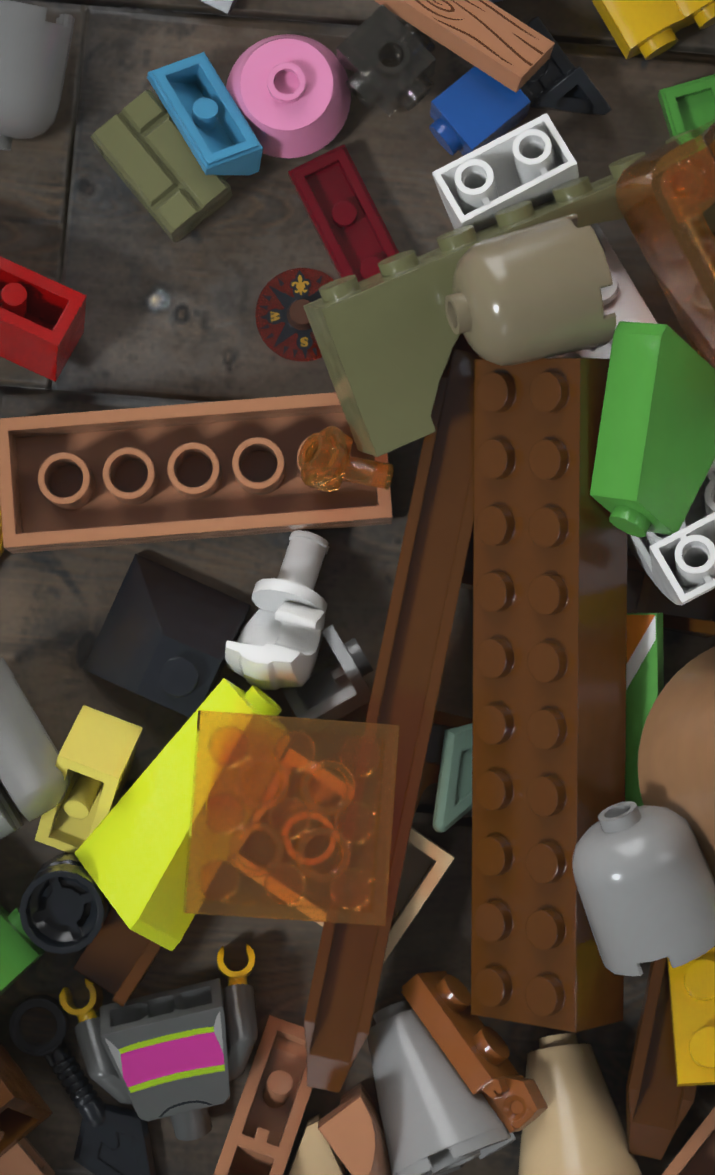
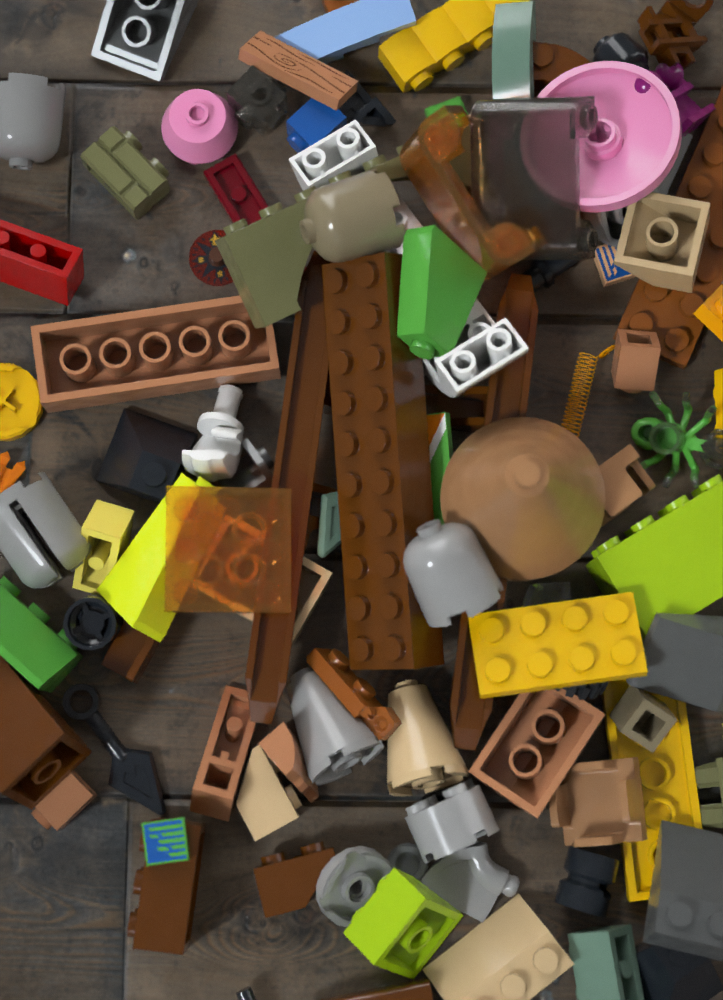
camera: 10 degrees left, 5 degrees down
(171, 1047) = (165, 707): dark grey torso -> none
(207, 117) = (151, 140): dark azure slope -> none
(327, 462) = (236, 336): clear orange plate -> none

